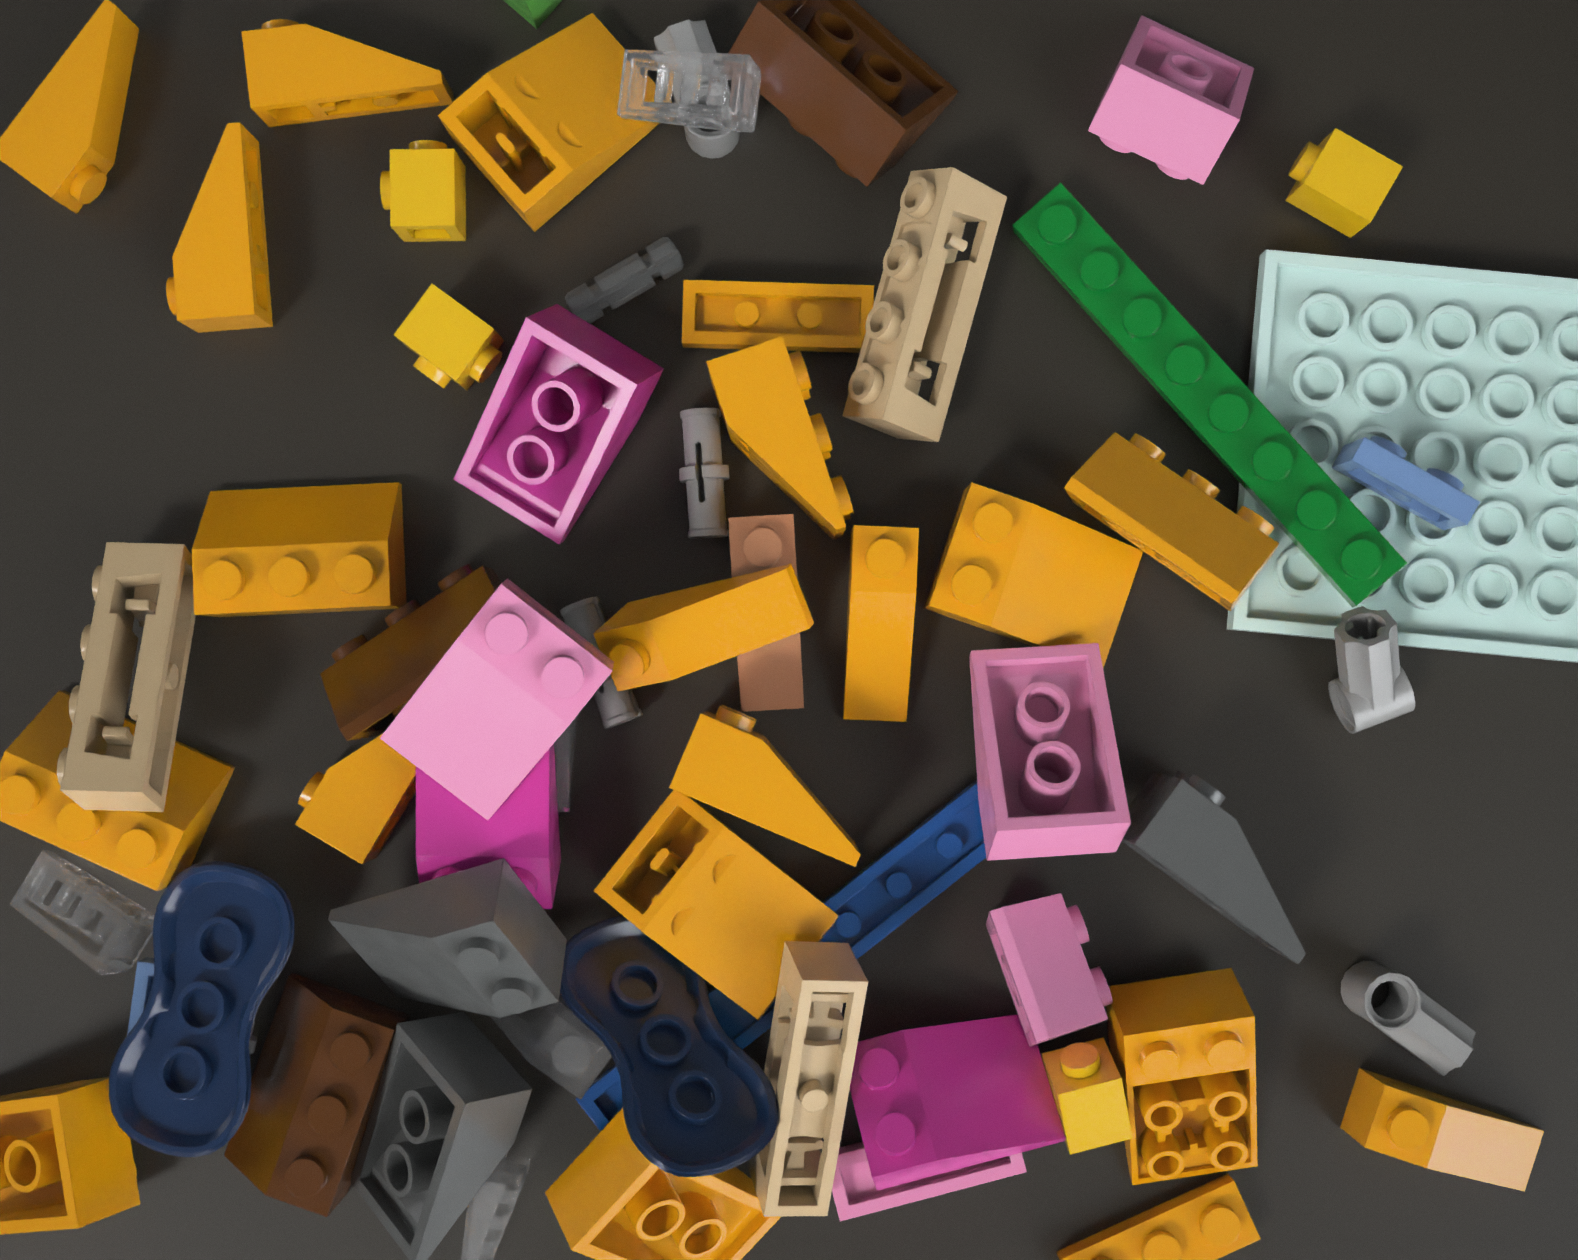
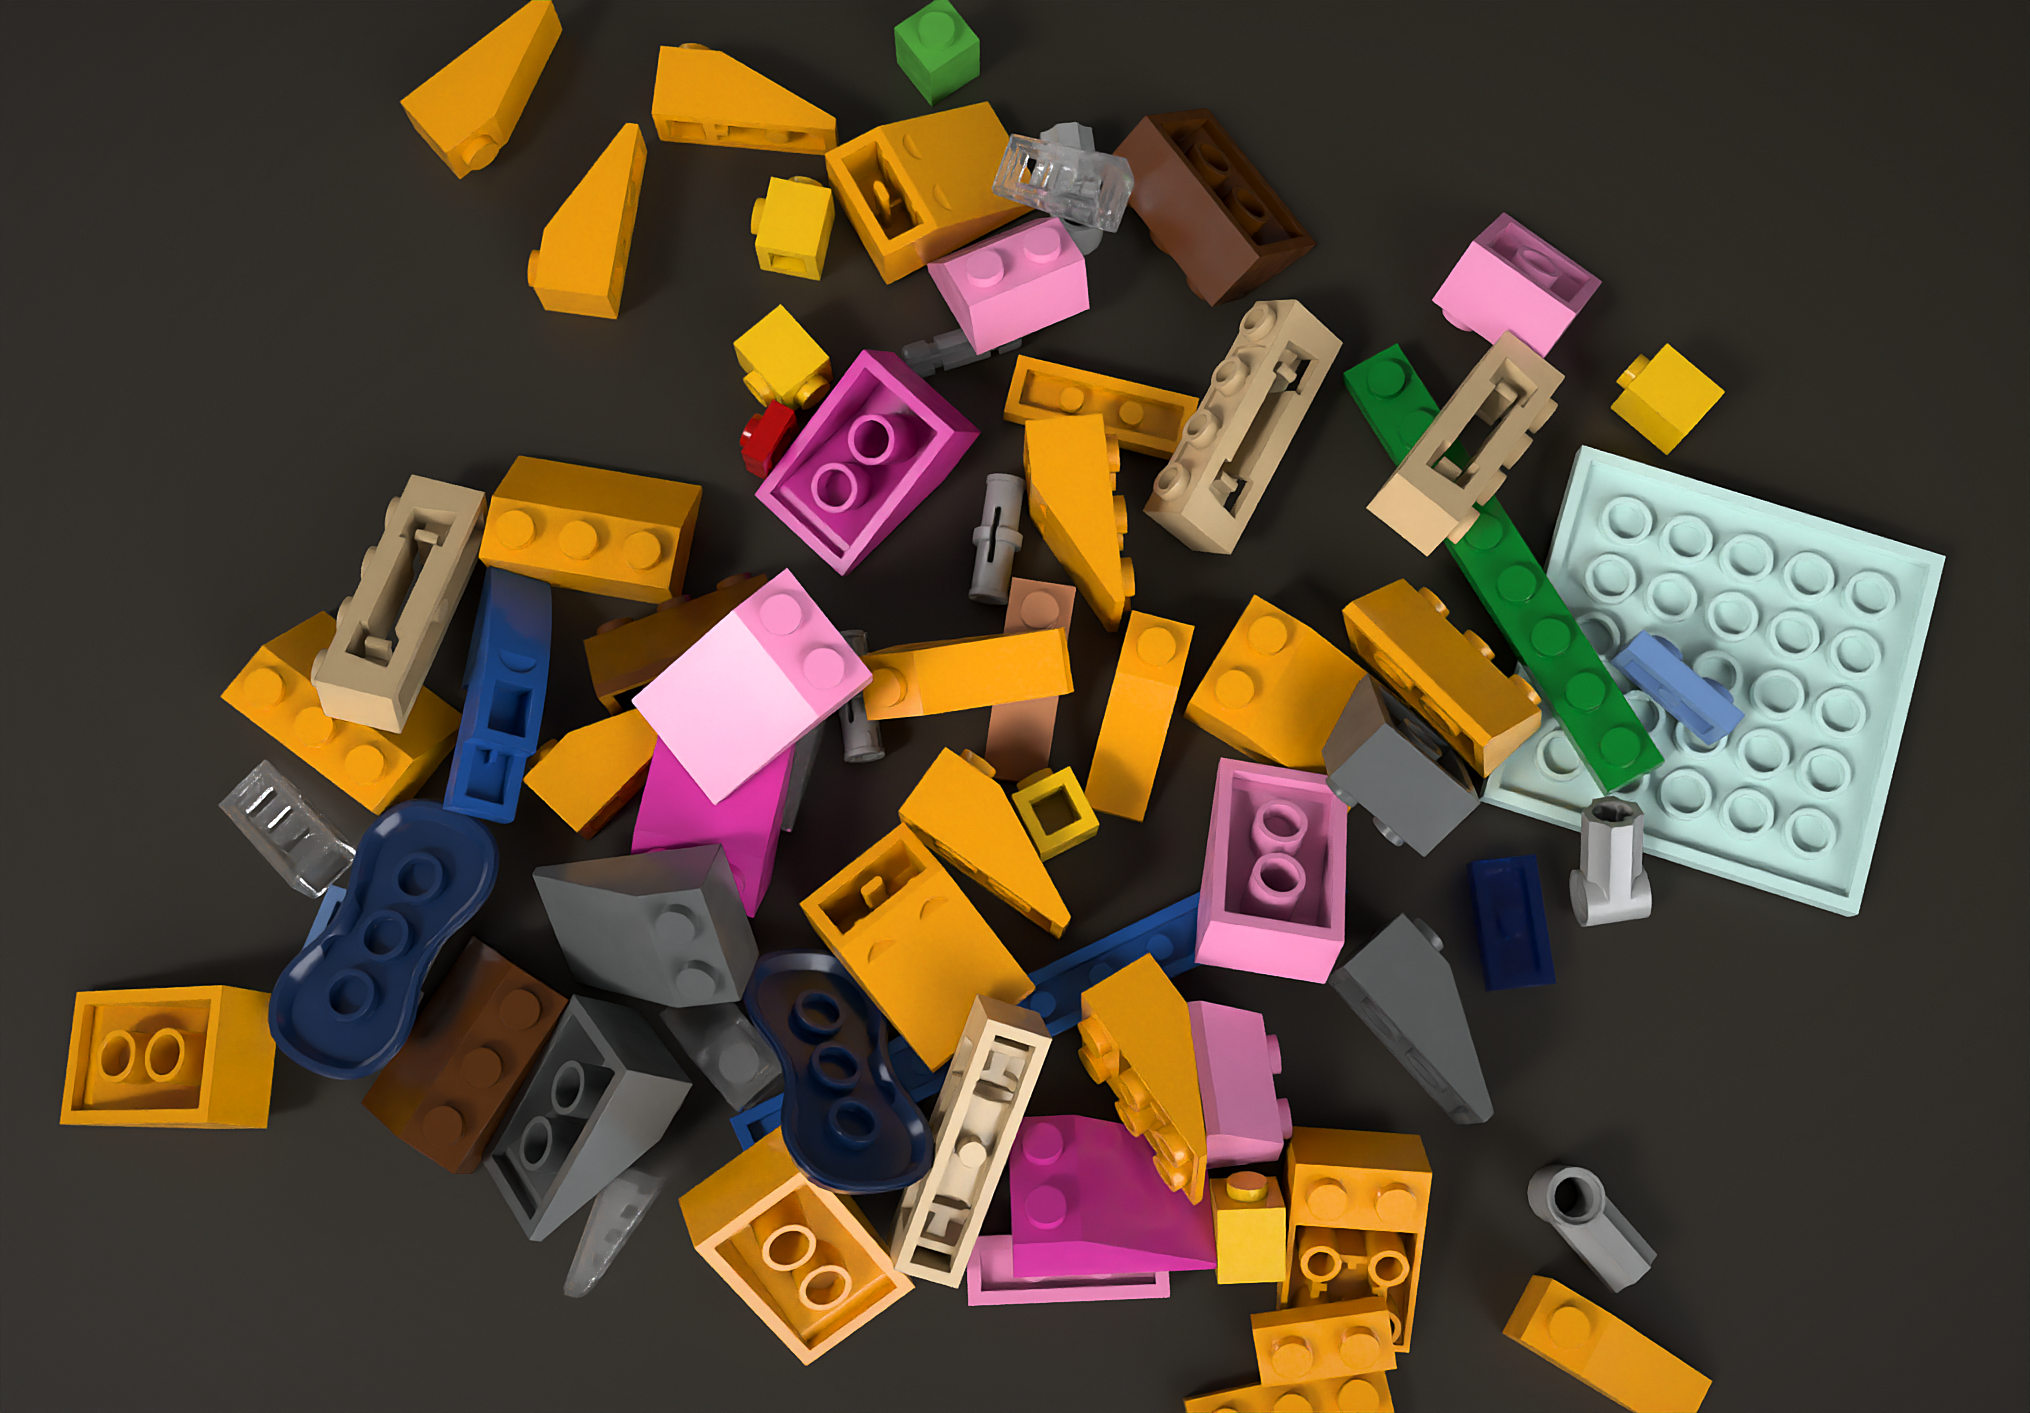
camera: 15 degrees right, 10 degrees down
(255, 742) = (504, 696): none -> blue slope
(453, 422) = (768, 438): none -> red plate
(660, 205) = (1013, 282): none -> bright pink slope
(818, 740) = (1054, 812): none -> yellow brick
(956, 951) = (1143, 1047): none -> light orange slope
(1140, 355) = (1438, 502): none -> tan brick
(1146, 625) = (1397, 769): none -> dark grey slope
(1178, 1181) = (1323, 1341): none -> light orange plate
(1281, 745) = (1511, 923): none -> clear blue plate

